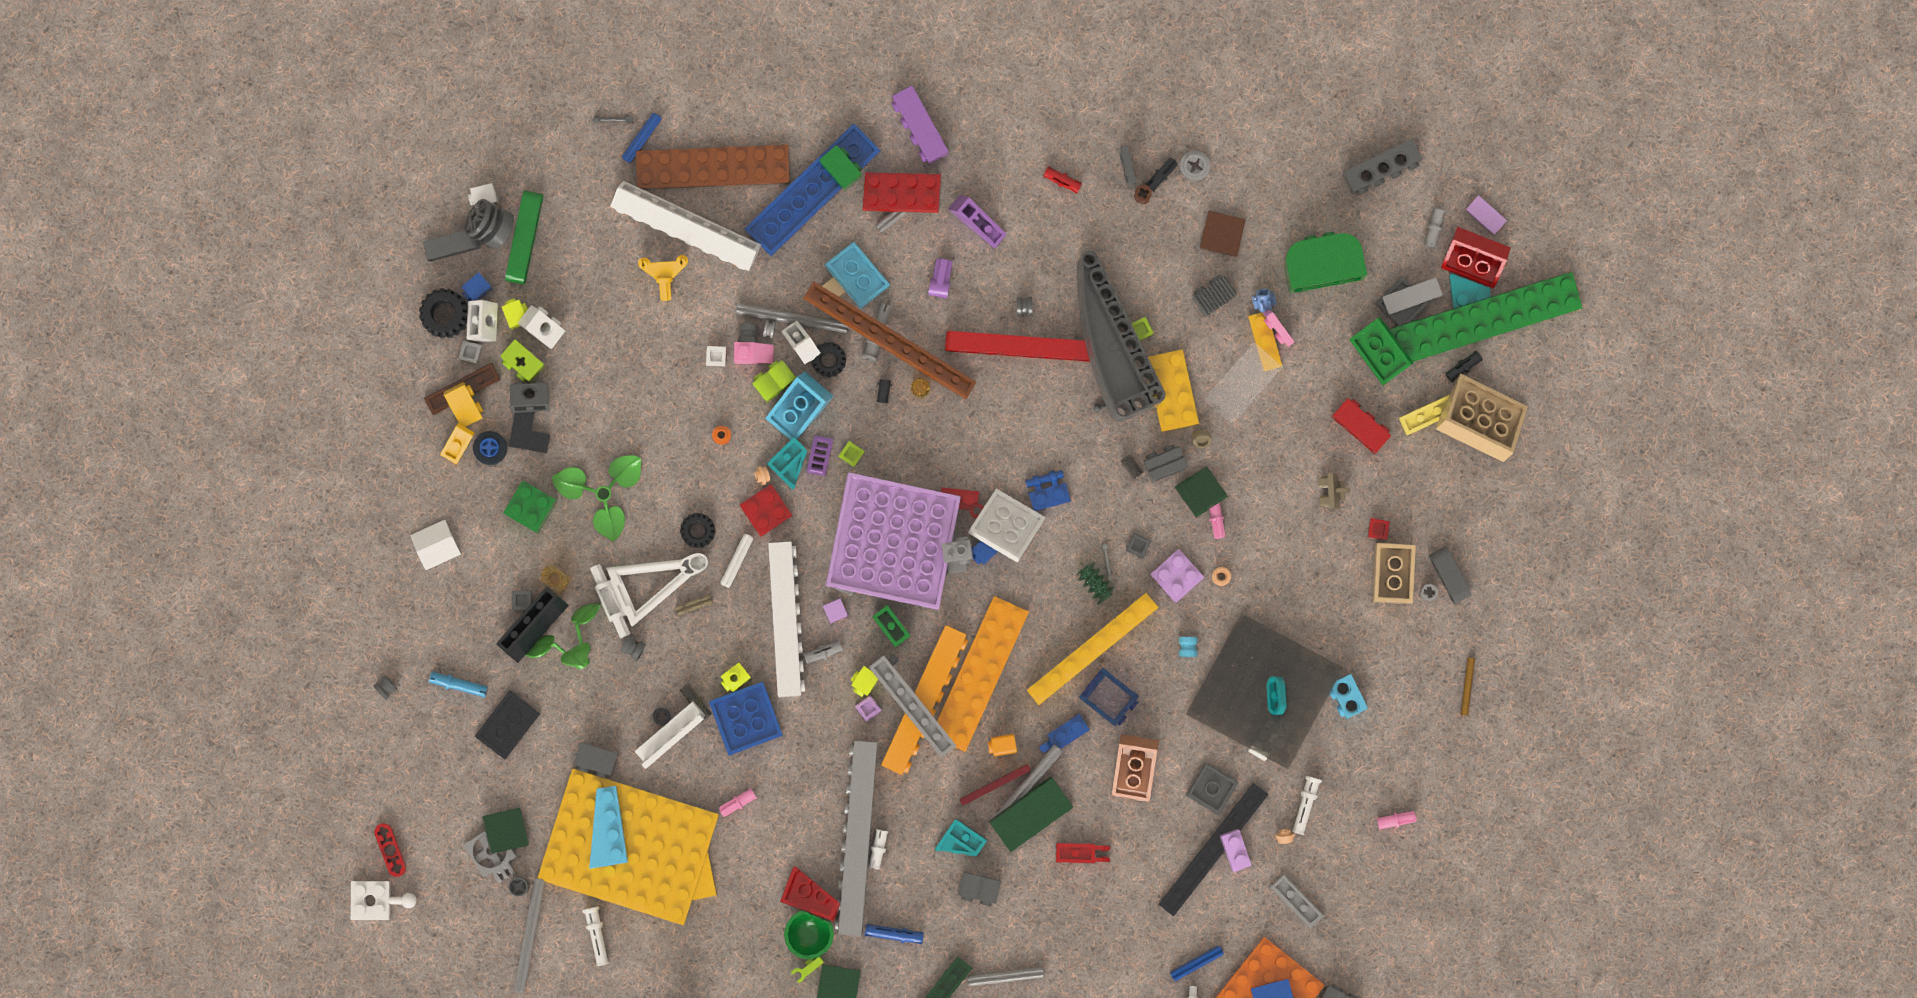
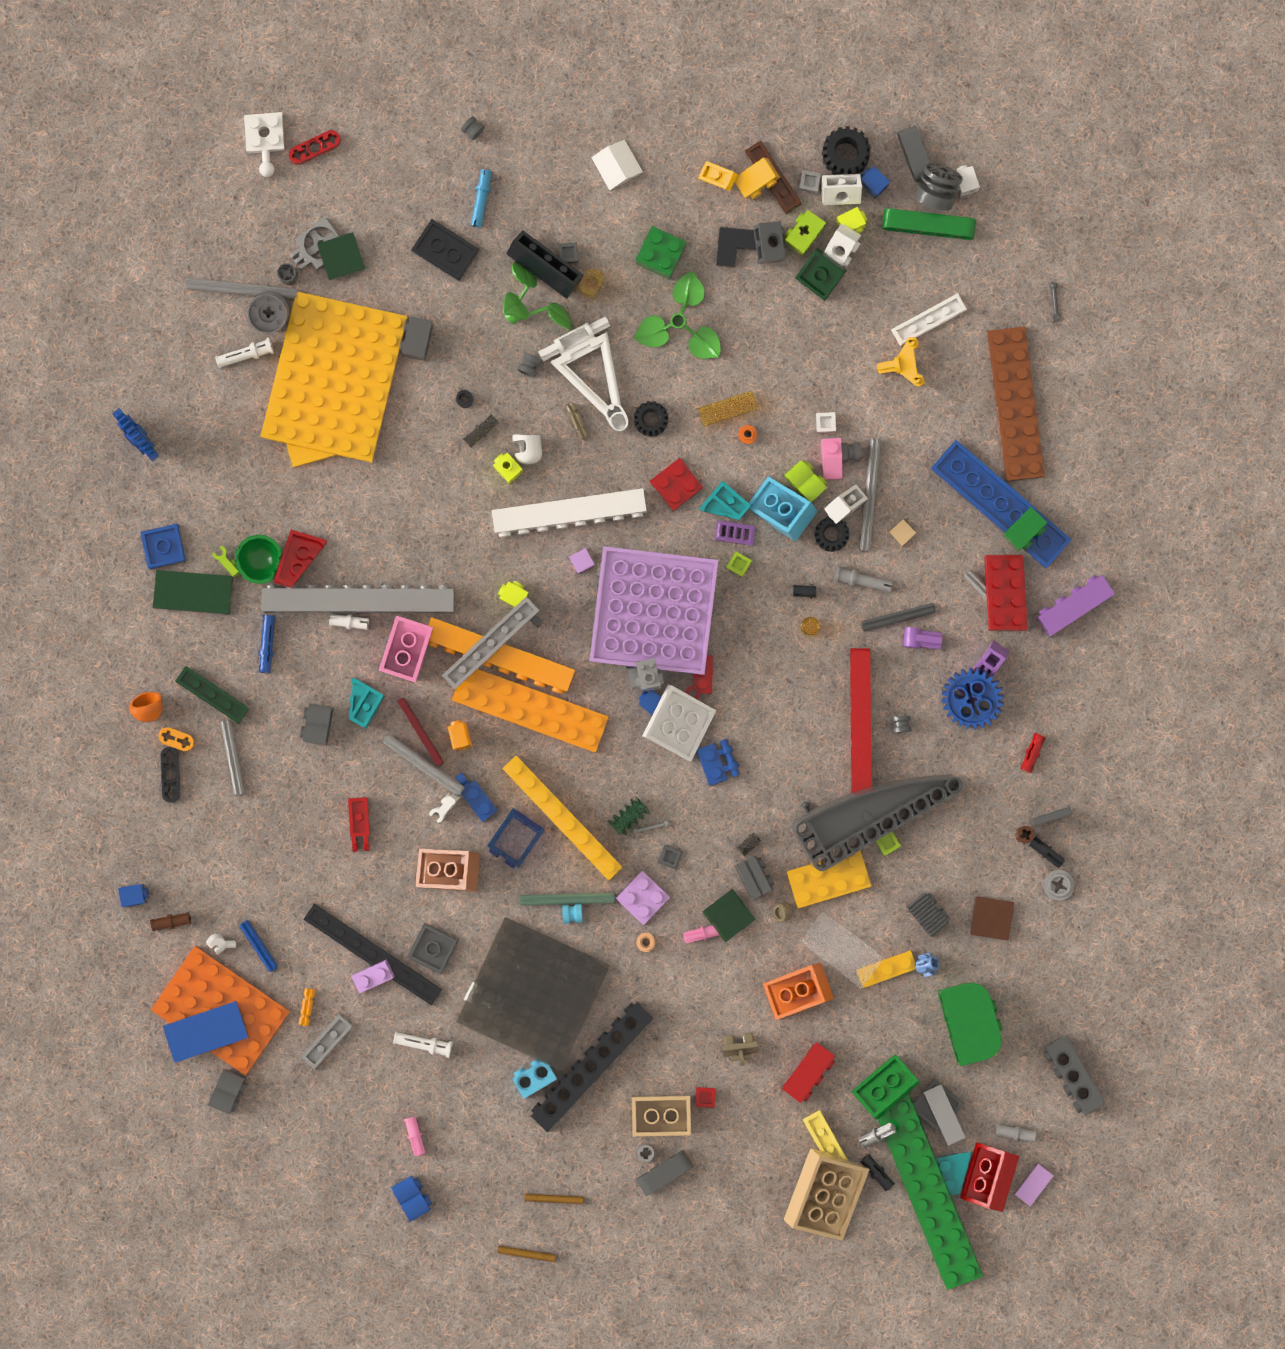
camera: 85 degrees right, 0 degrees up
(483, 448) = (716, 201): black wheel -> none
(566, 348) = (821, 274): none -> dark green tile
(569, 907) = (259, 318): none -> flat silver wheel
(608, 835) = (345, 355): medium azure wing -> none
(620, 245) = (929, 319): none -> white tile
(641, 137) = (1039, 331): blue axle -> none
(670, 734) = (447, 408): white fence -> none
(685, 225) = (953, 381): white brick -> none
(693, 453) = (727, 408): none -> clear yellow plate
(718, 649) = (533, 448): none -> white helmet
(736, 560) = (623, 459): white axle -> none
(737, 802) = (385, 480): bright pink axle -> none
(745, 718) = (468, 481): blue plate -> none
(762, 475) = (710, 477): light nougat plate -> none
(769, 329) = (857, 472): light grey bush -> none
(823, 652) = (539, 551): light grey pin -> none
(857, 275) = (918, 555): medium azure tile -> none
(868, 708) = (487, 601): lavender tile -> none
(889, 340) = (855, 591): dark orange plate -> none
(891, 626) = (569, 616): green brick -> none
(911, 792) = (406, 649): none -> bright pink slope
(917, 300) = (898, 617): none -> dark grey axle
(1007, 250) = (989, 693): none -> blue gear
(1030, 814) = (394, 769): dark green tile -> none
(1067, 761) = (448, 802): none -> white plate
(1172, 651) = (555, 899): none -> sand green axle
(1261, 919) = (306, 1008): none -> light orange axle
(1272, 322) = (905, 974): bright pink plate -> none
(1276, 695) = (528, 1004): teal plate -> none
(1280, 429) = (798, 991): none -> orange slope
(1285, 836) = (390, 1024): light nougat plate -> none
(1390, 685) = (539, 1111): none -> black brick
(1427, 362) = (877, 1135): none -> light grey axle
(1457, 827) = (411, 1197): none -> blue brick
(1519, 717) = (526, 1253): none -> pearl gold bar

